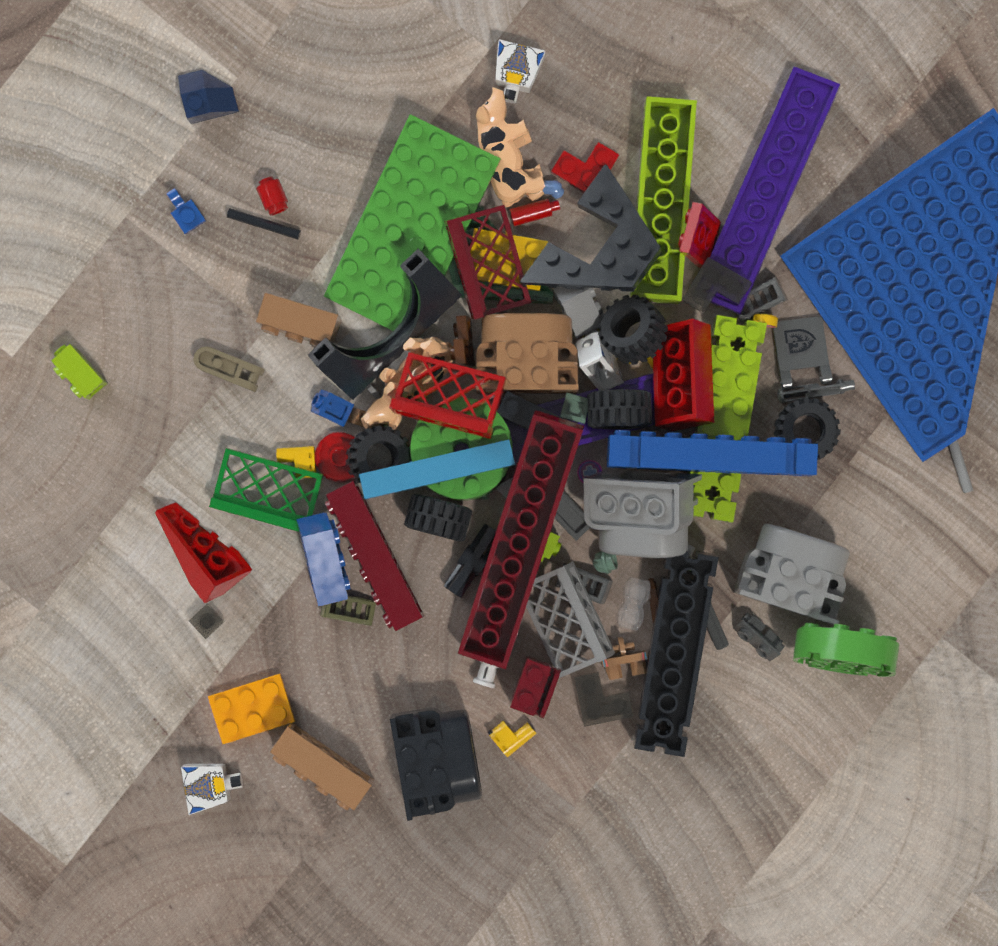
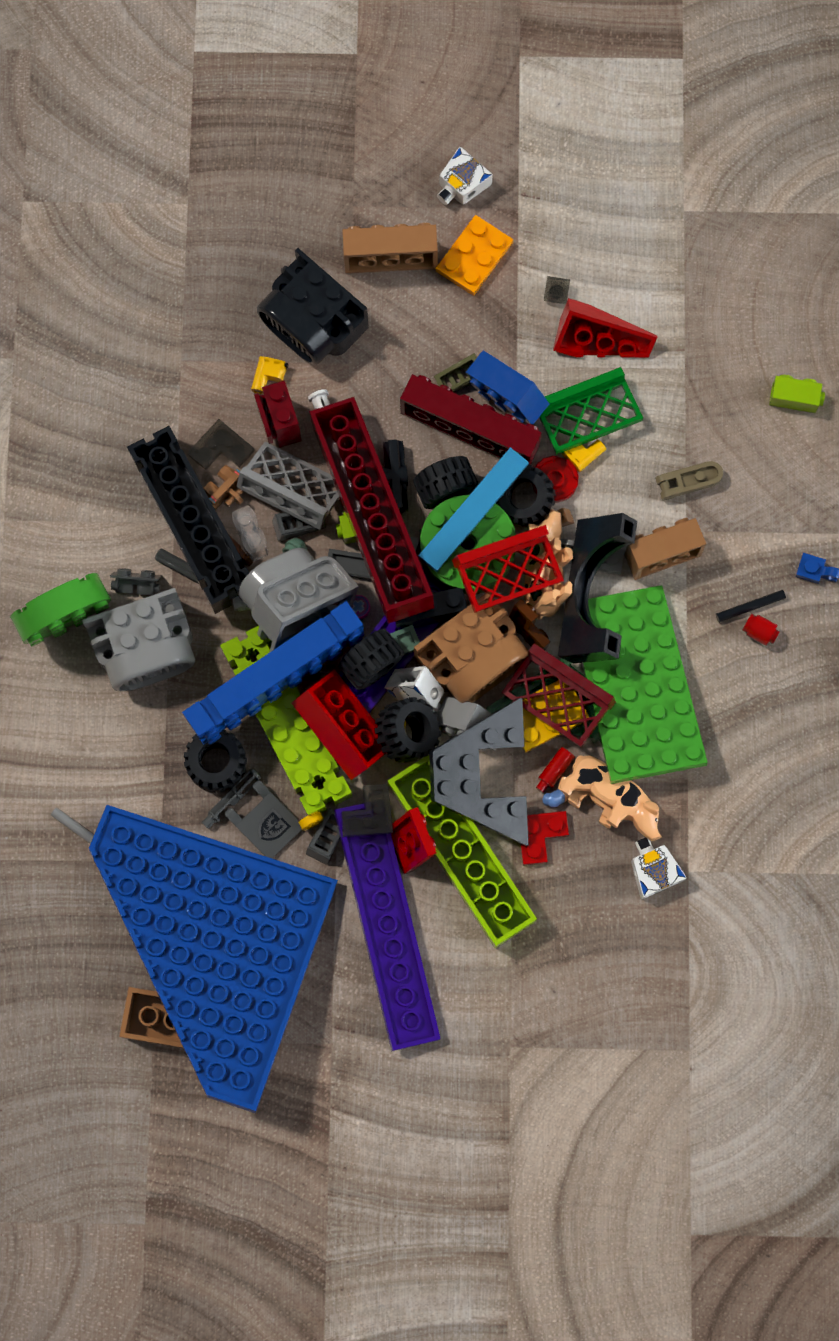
camera: 145 degrees right, 10 degrees down
(331, 407) = (589, 506): blue bracket -> none

